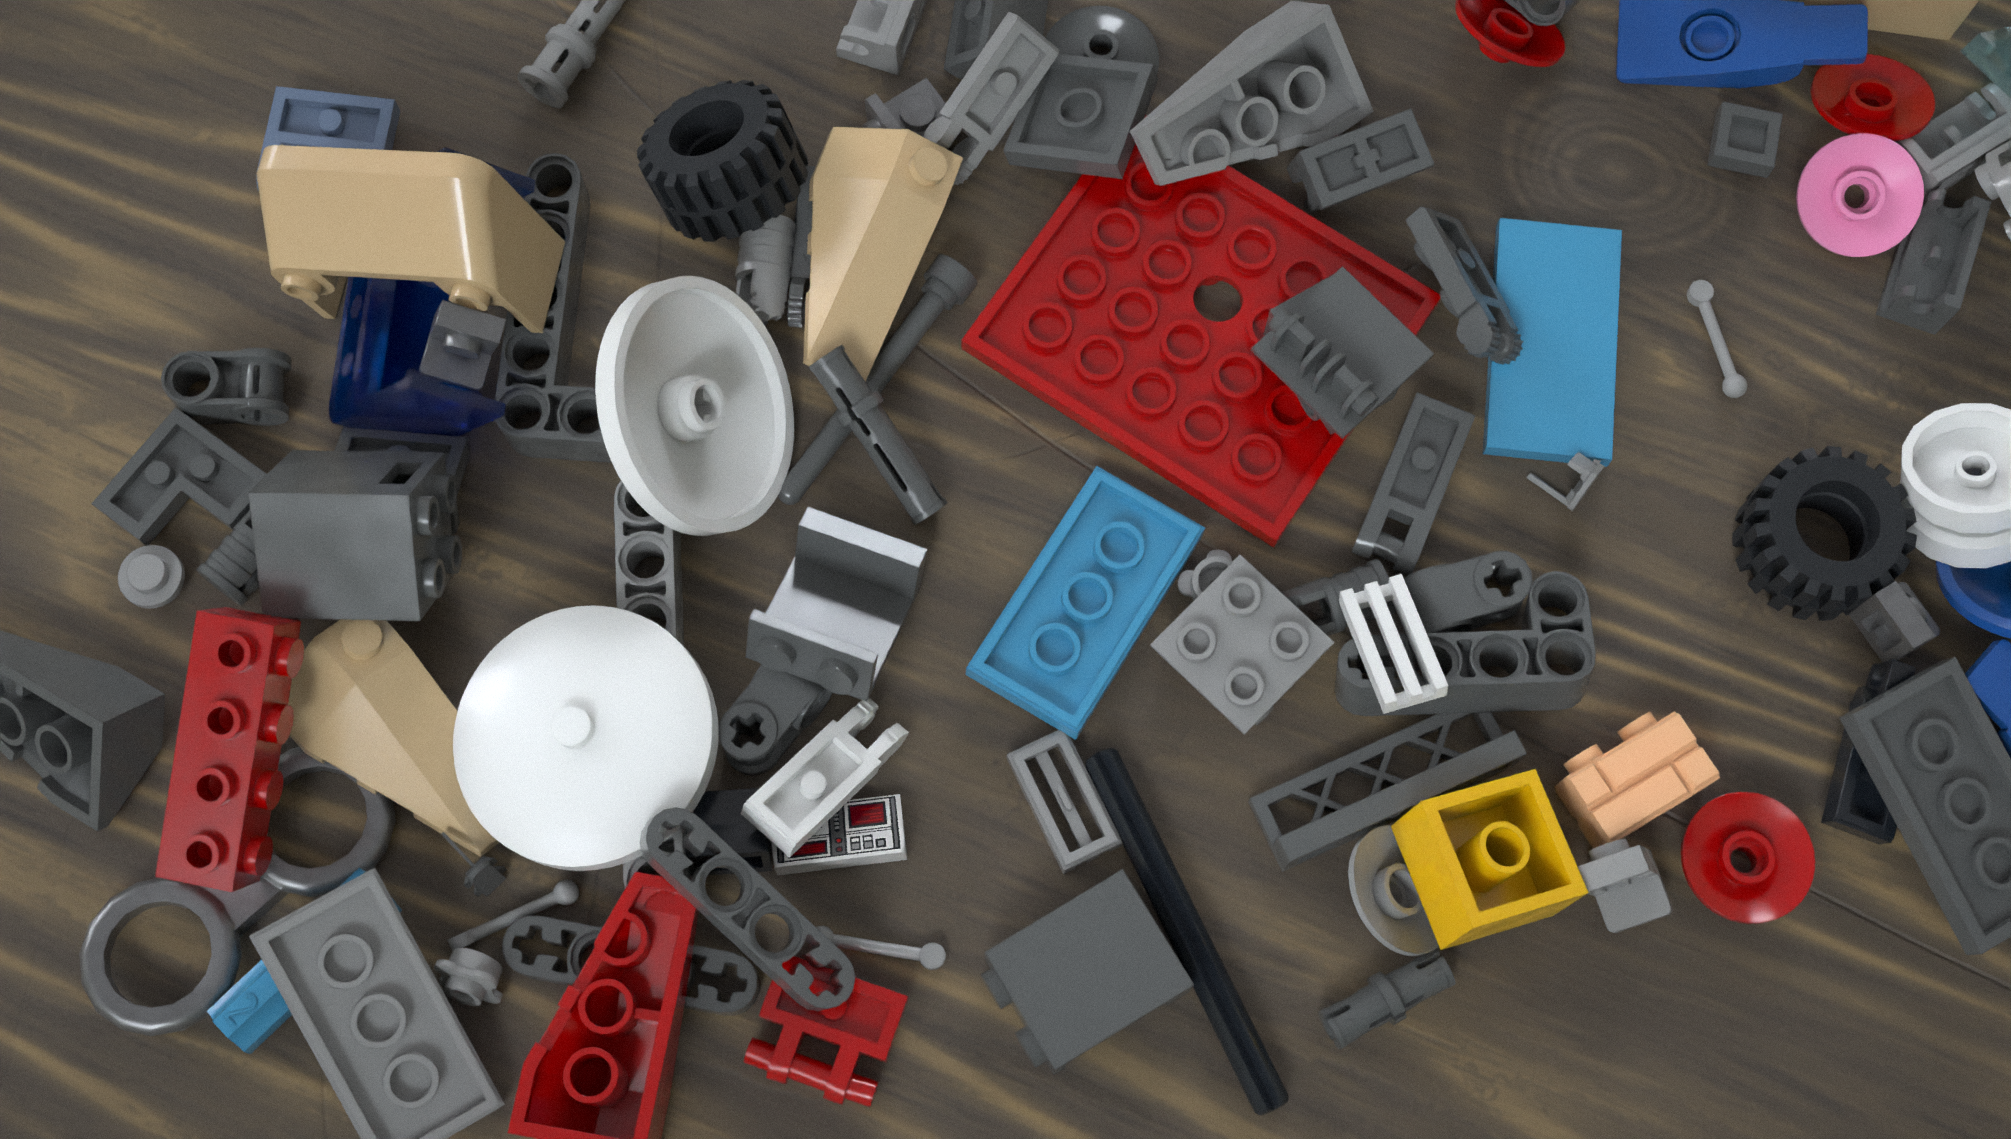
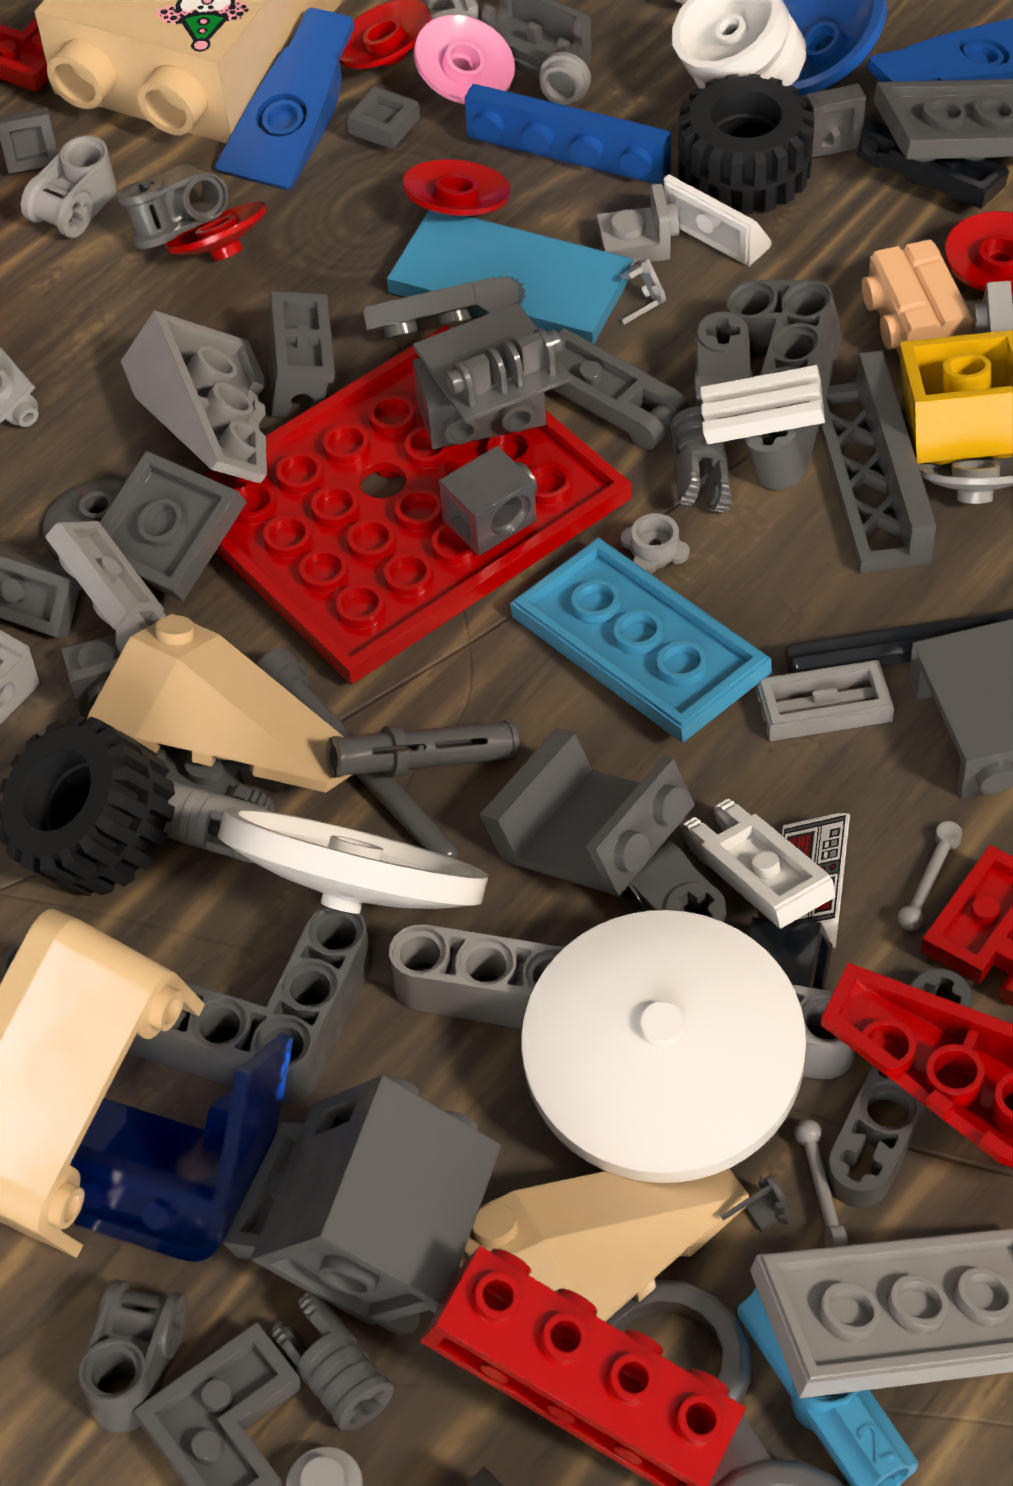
camera: 70 degrees left, 20 degrees down
(461, 345) = (186, 1062): flat silver bracket -> none
(470, 977) = (881, 1219): light grey plate -> none
(740, 918) = (819, 957): dark grey beam -> none
(1189, 405) = (488, 500): none -> flat silver brick
(1242, 644) = (722, 524): light grey hinge -> none
(1659, 454) = (641, 231): none -> light grey bracket
(1667, 236) = (456, 187): none -> red dish
(1699, 295) = (591, 177): light grey hinge -> none
(1703, 533) = (716, 222): none -> white slope
(1779, 358) = (568, 134): none -> blue plate
(1870, 310) = (564, 78): none -> light grey plate

